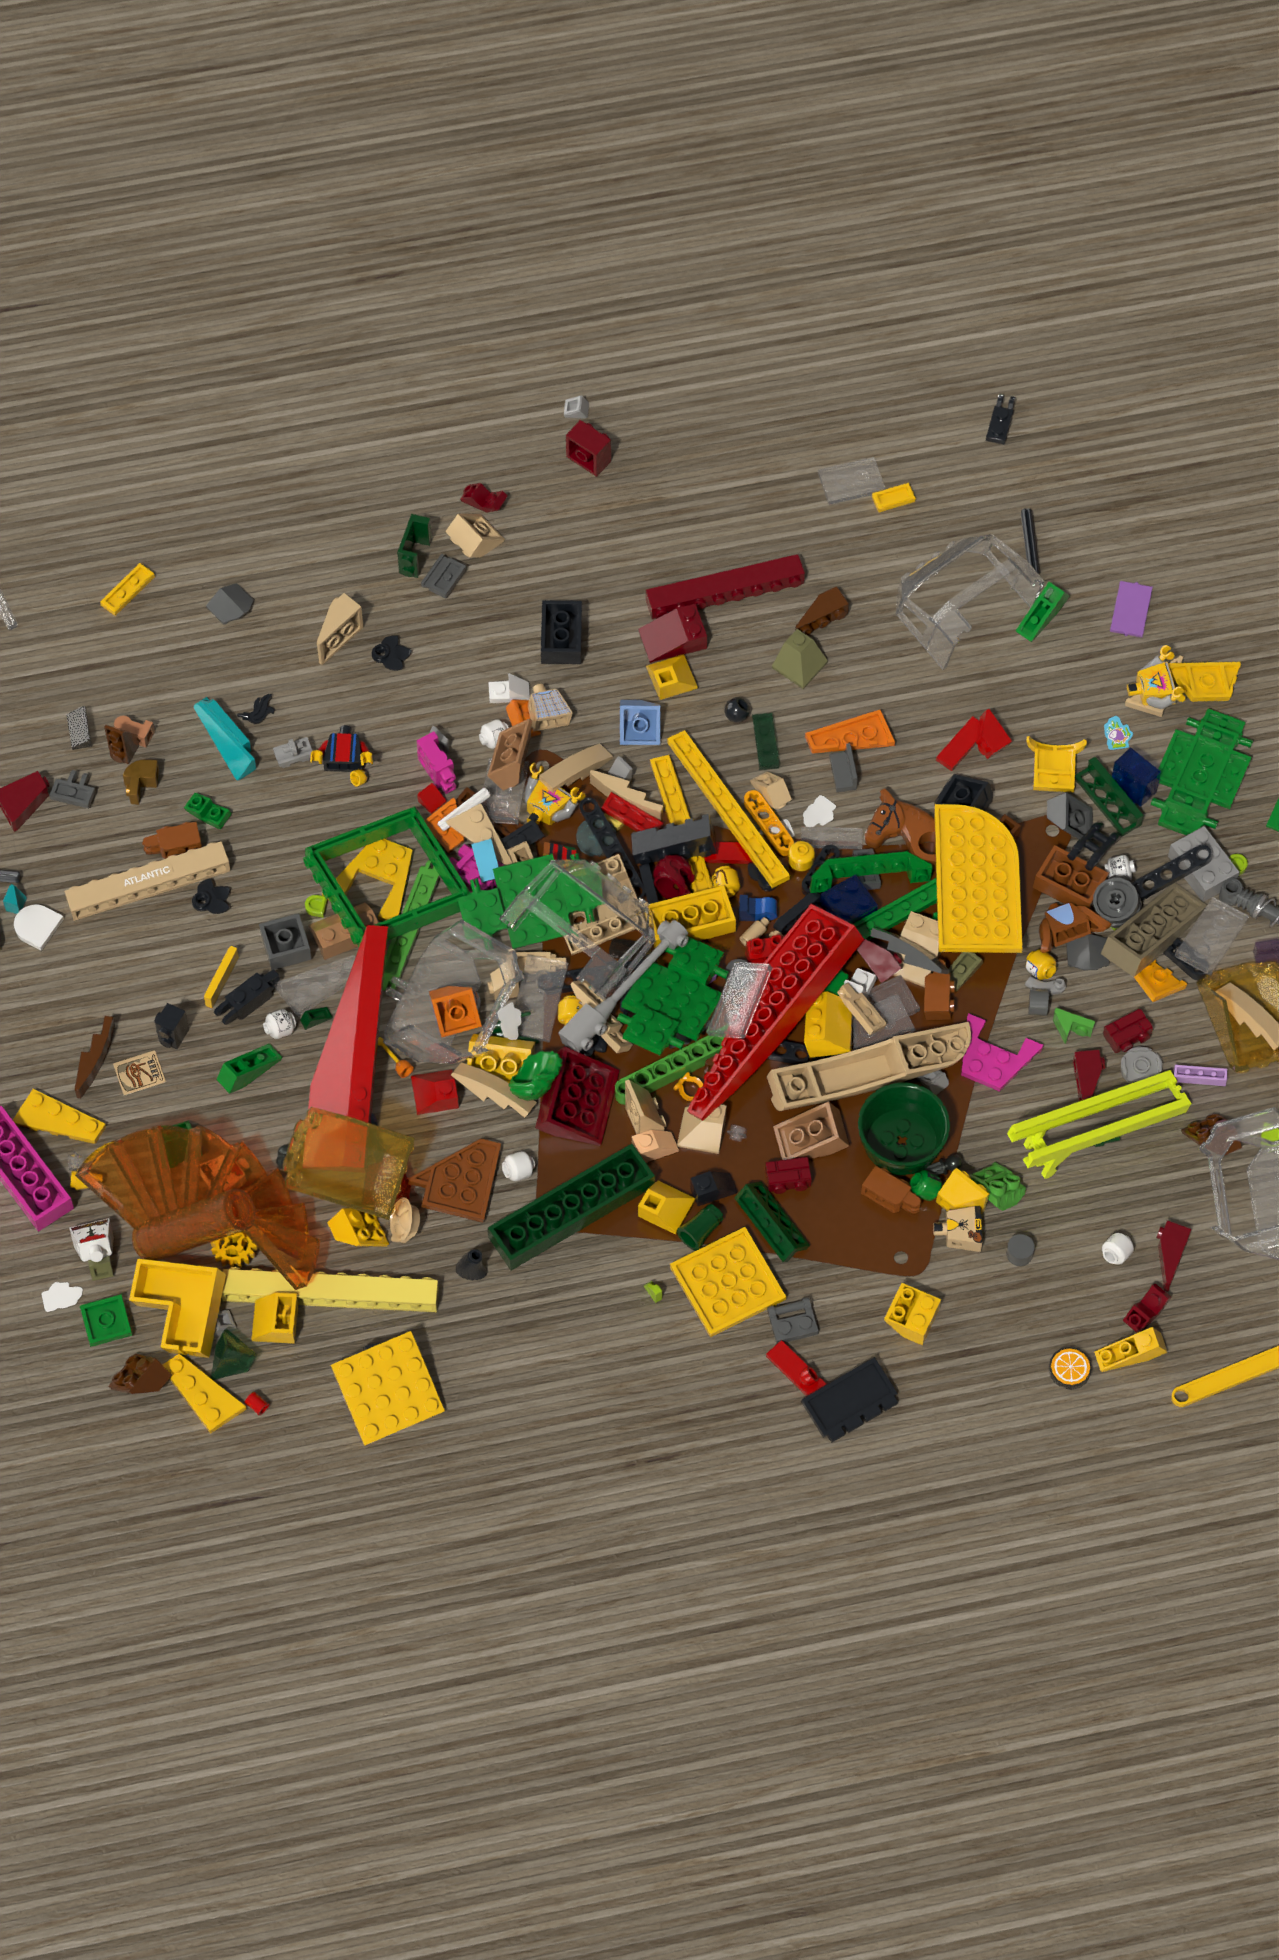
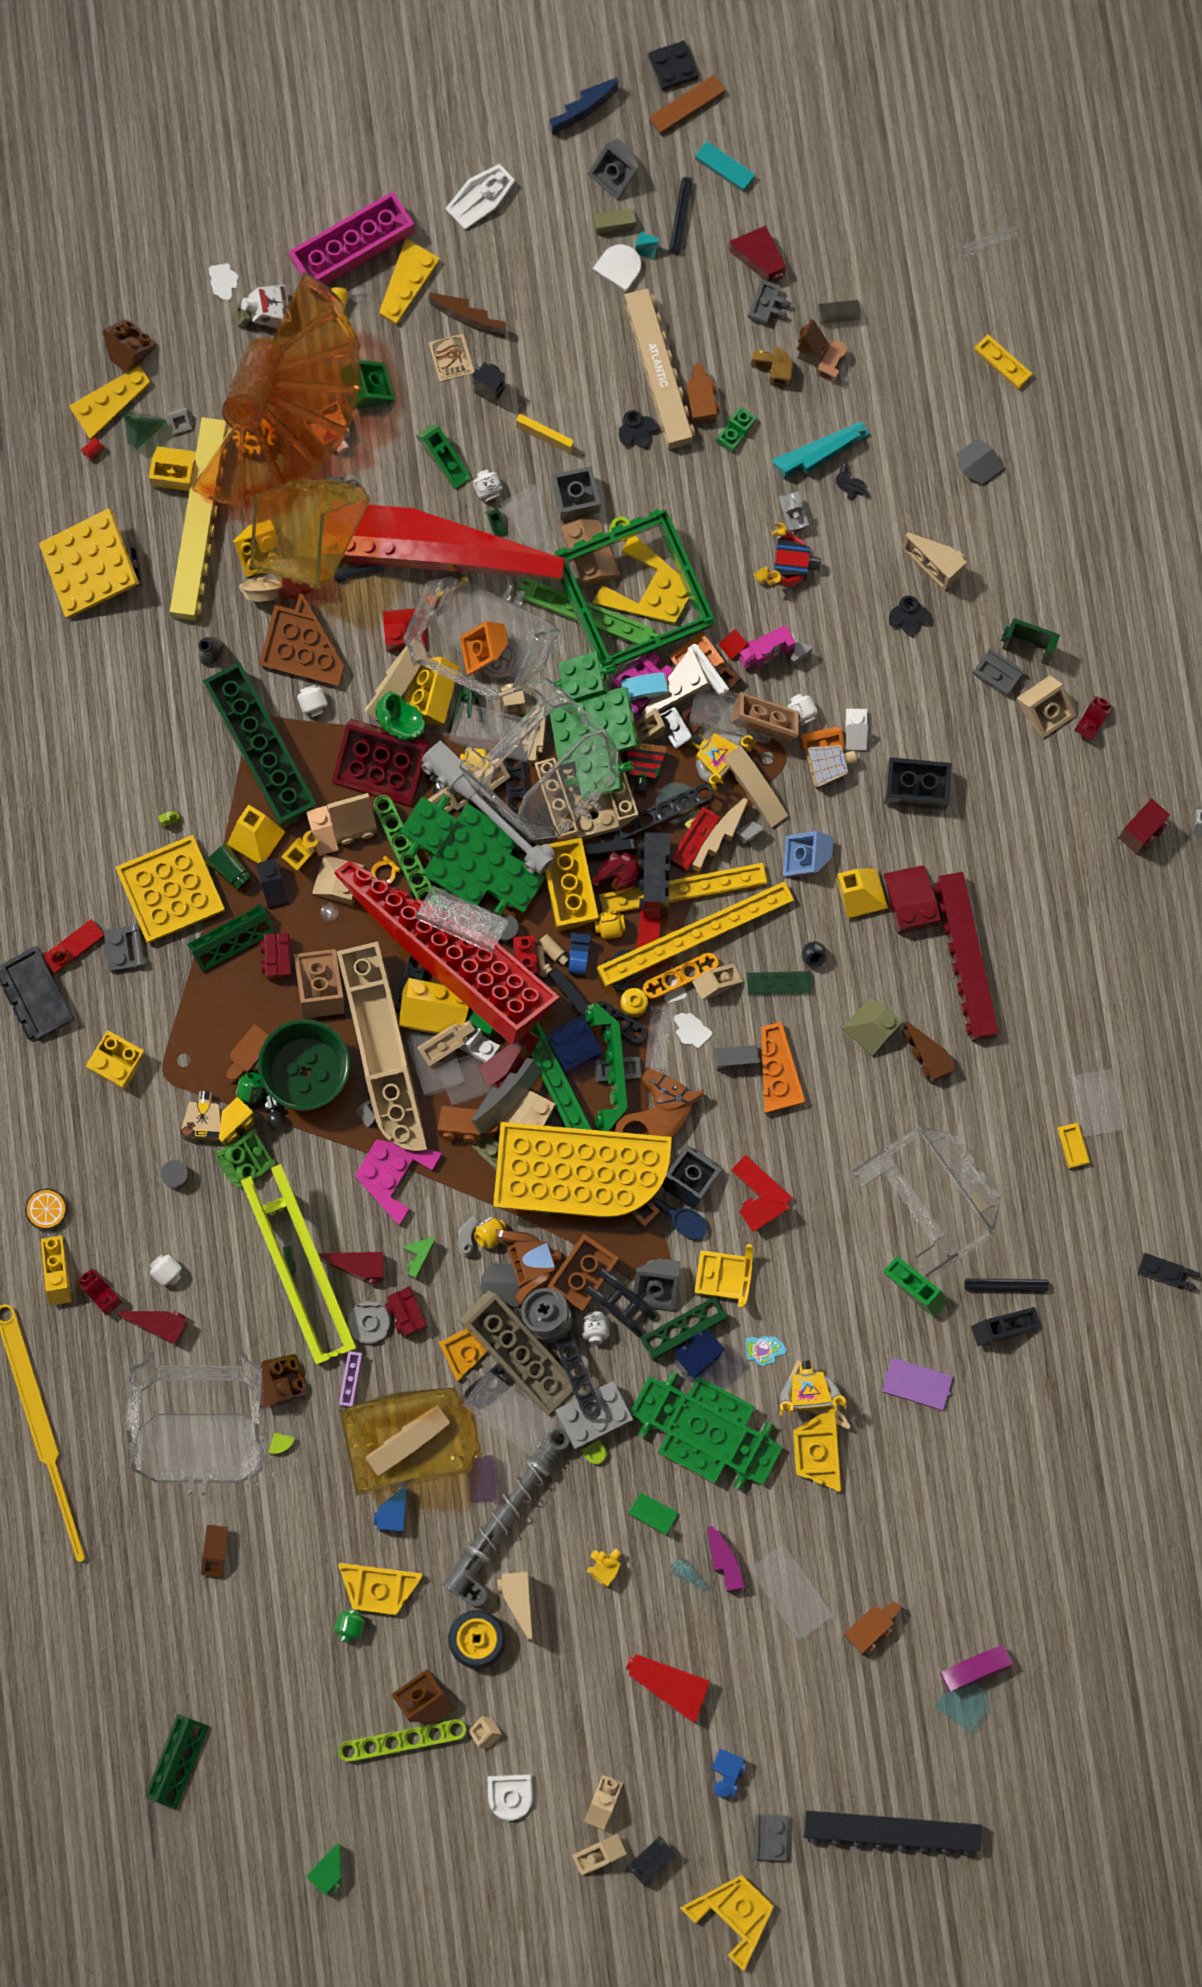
camera: 90 degrees right, 15 degrees up
(105, 1320) = (190, 317): green plate -> none
(190, 1296) = (193, 389): yellow piece -> none
(247, 996) = (519, 456): black hinge -> none
(510, 1020) = (459, 695): white sticker -> none
(680, 1160) = (300, 851): none -> yellow brick
(1007, 800) = (685, 1220): none -> dark blue piece
(1038, 1002) = (446, 1224): dark grey piece -> none
(1071, 540) = (1005, 1326): none -> black slope

